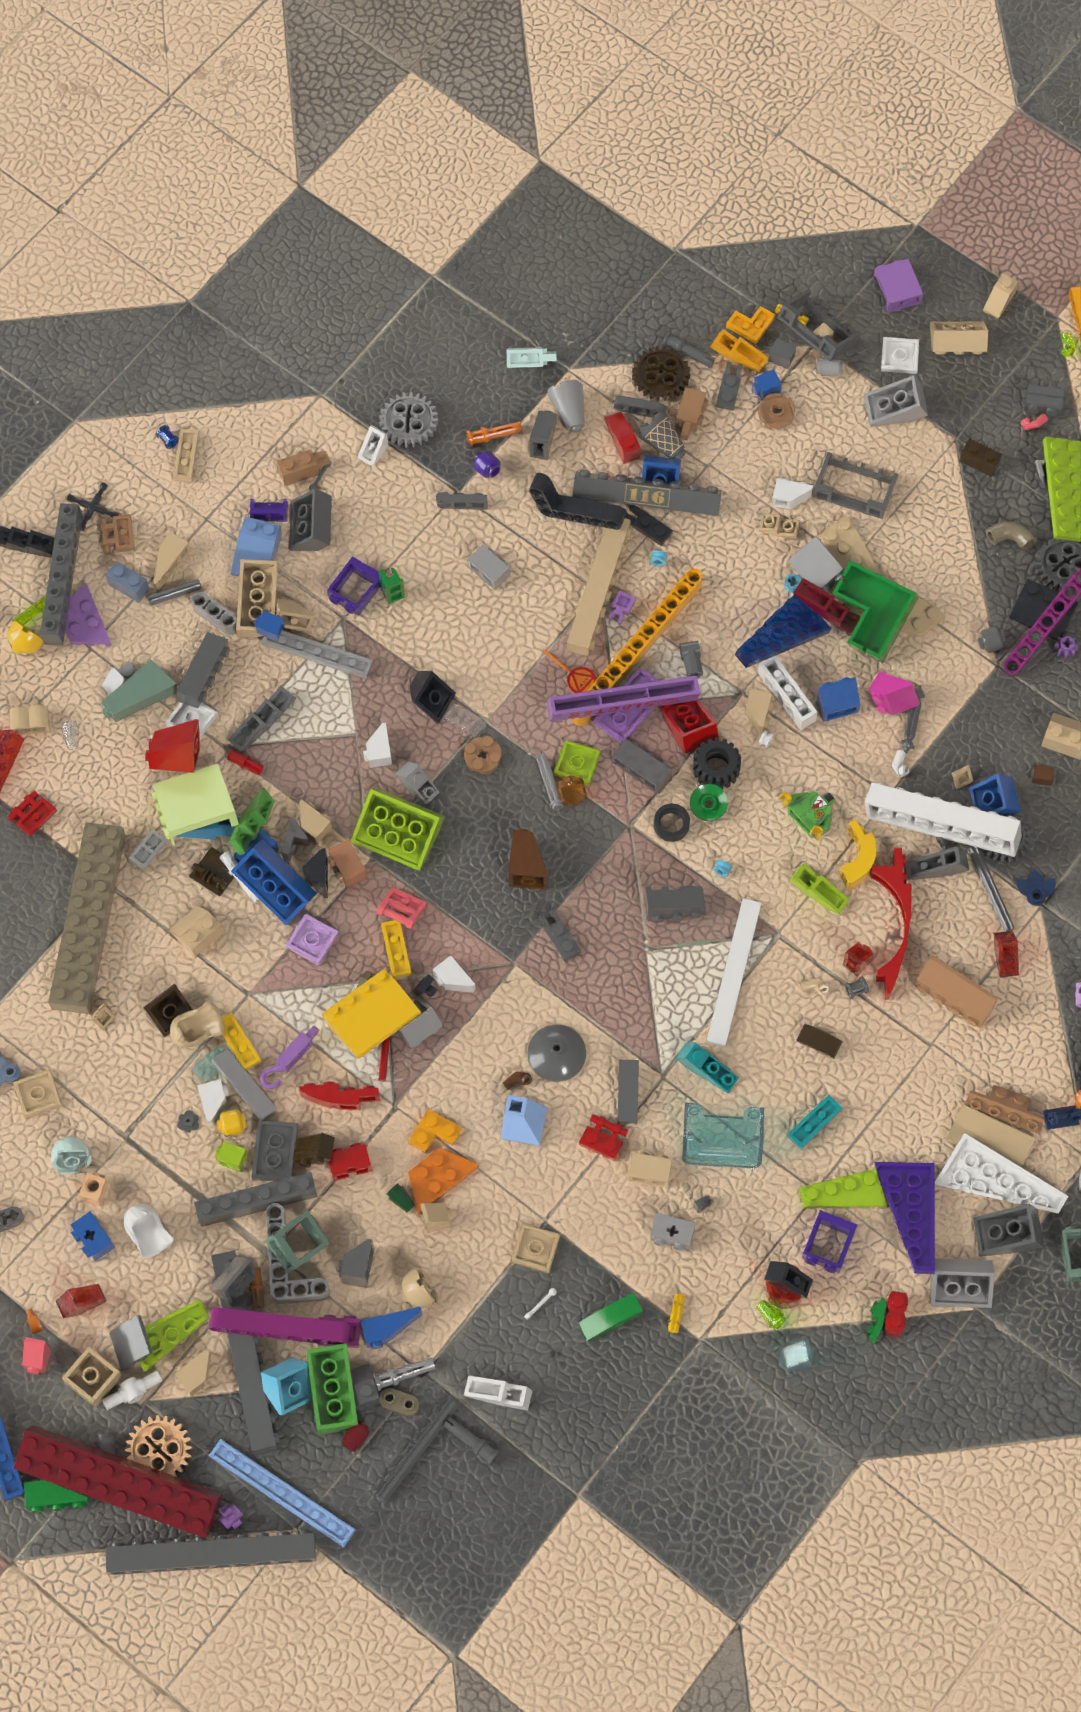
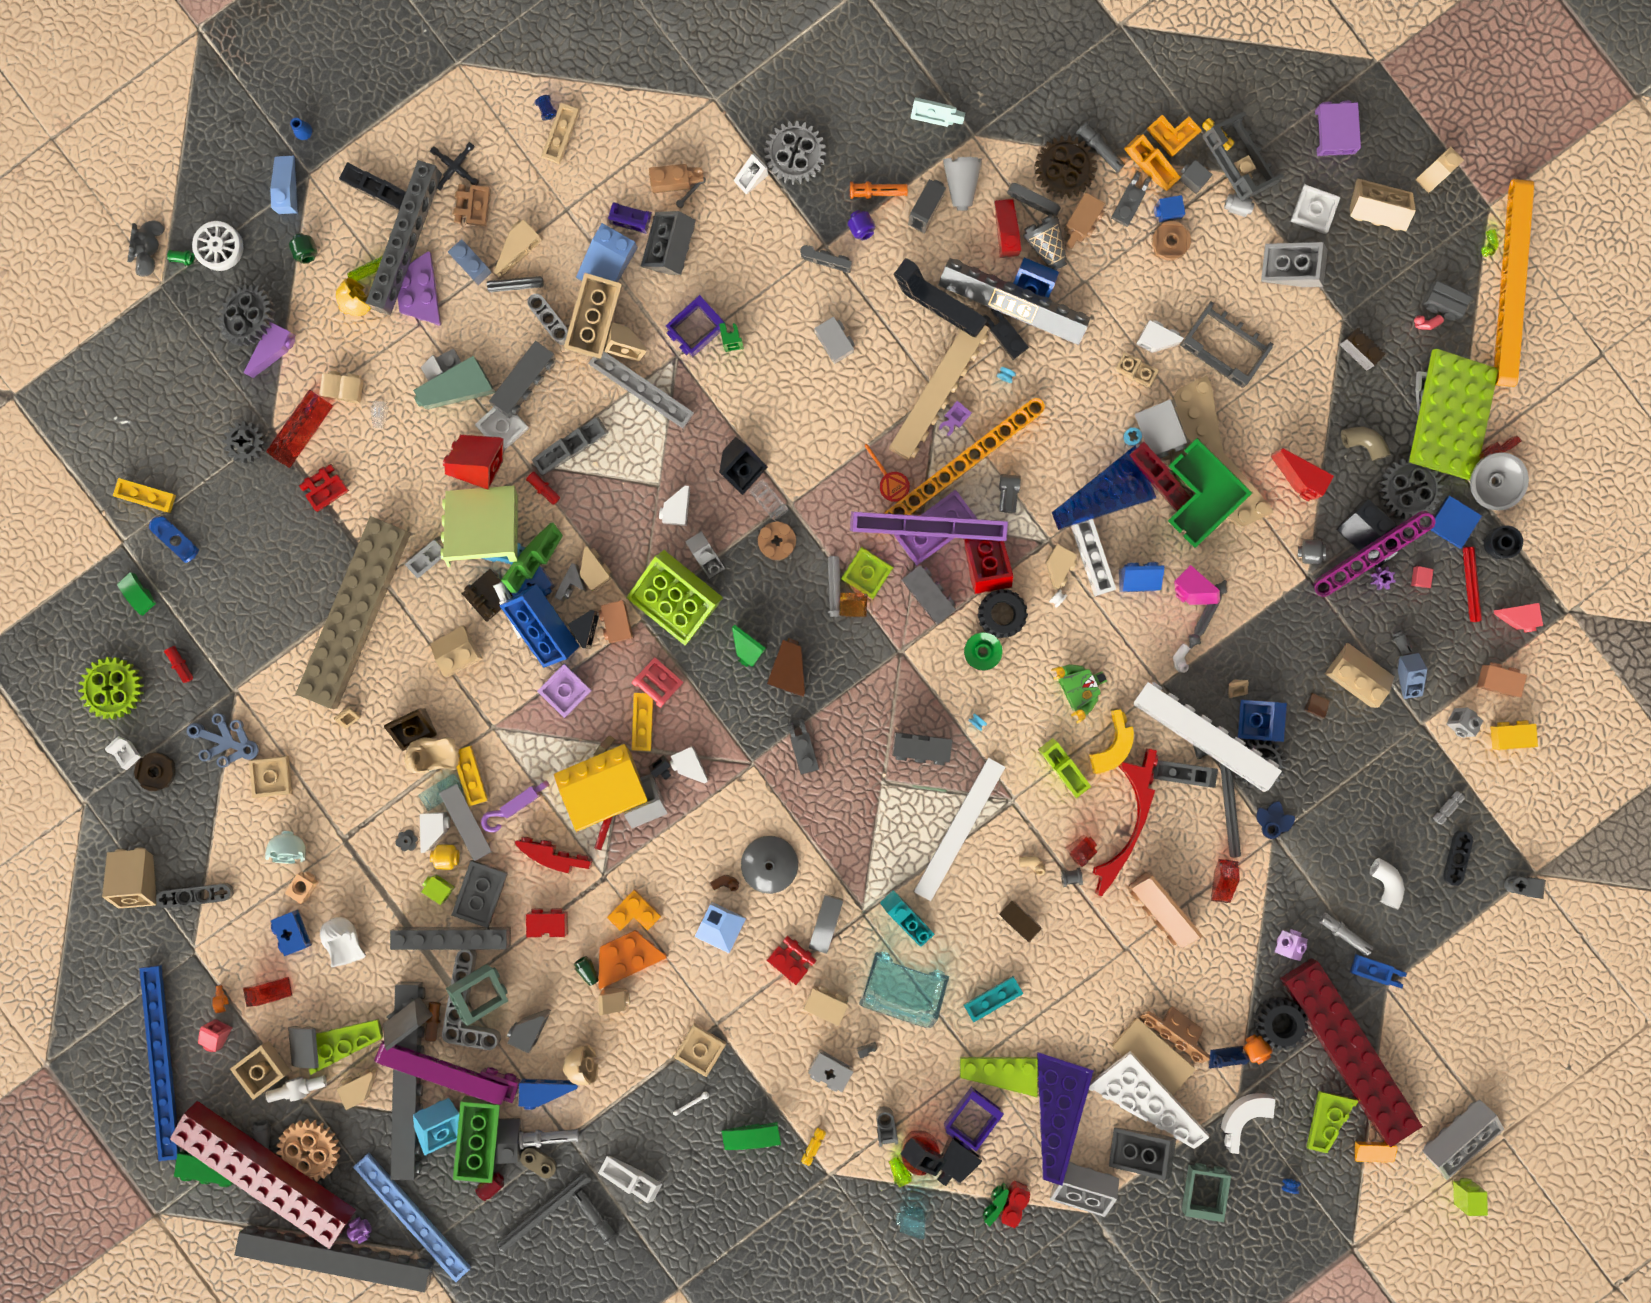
camera: 15 degrees right, 20 degrees up
(269, 625) = (596, 354): blue brick -> none
(313, 1149) = (514, 907): dark brown brick -> none
(481, 851) = (746, 647): none -> slope
(676, 809) = (956, 661): black tyre -> none
(747, 1276) = (886, 1129): none -> dark grey piece
(825, 1288) = (959, 1161): none -> black torso
(959, 573) = (1302, 475): none -> red slope

